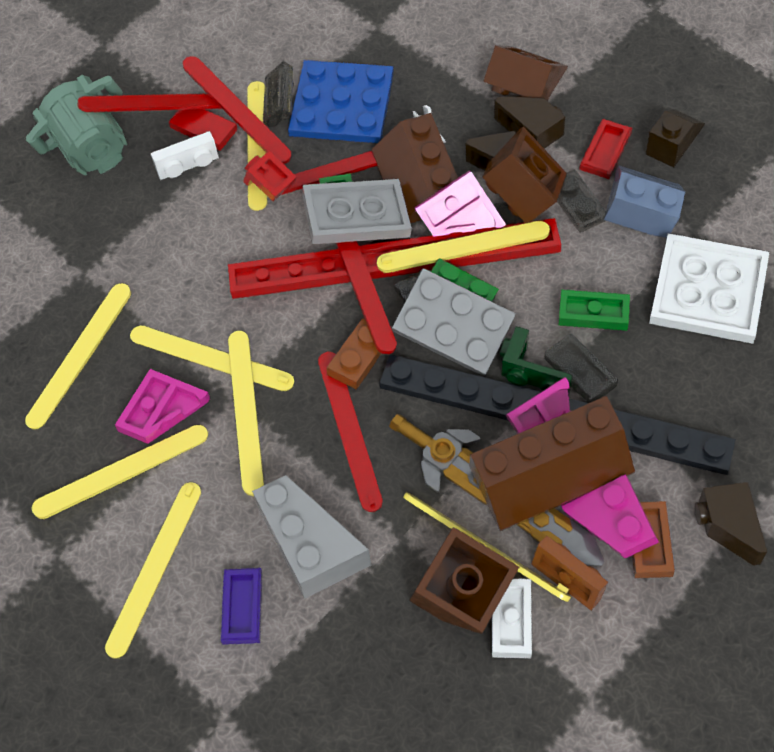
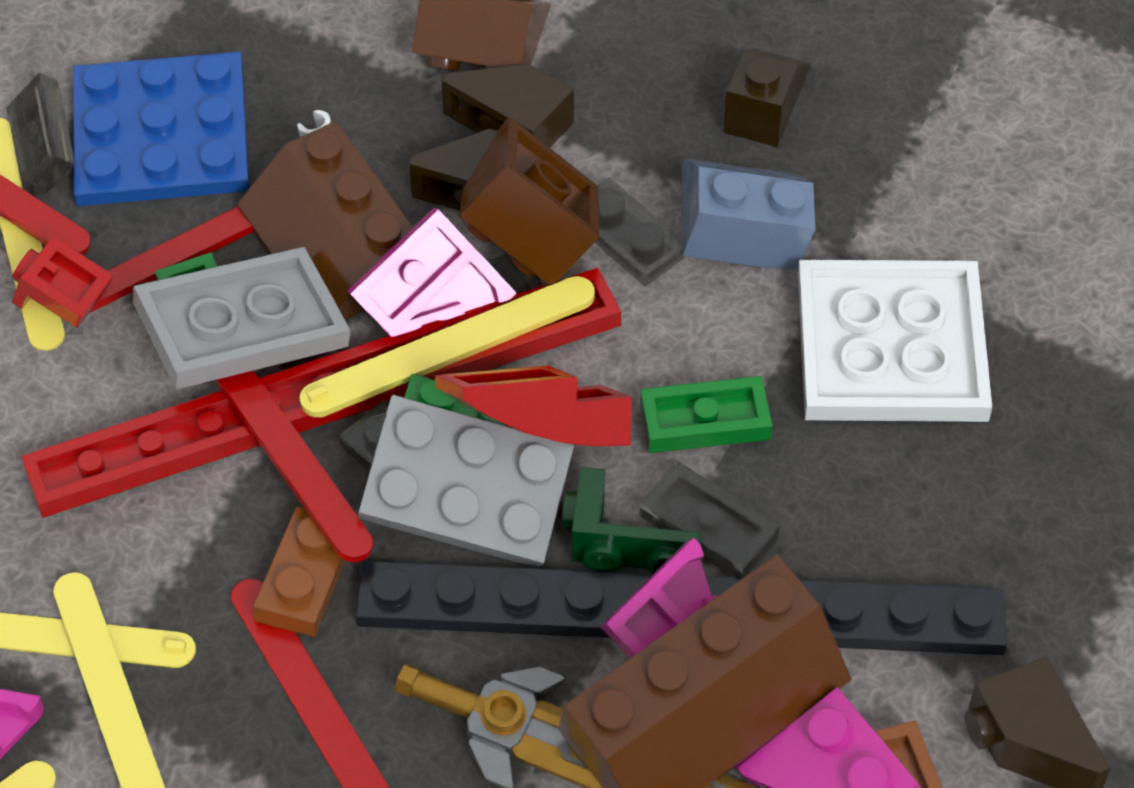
camera: 20 degrees left, 5 degrees down
(504, 288) = (545, 404): none -> red slope
(605, 149) = (653, 134): red tile -> none

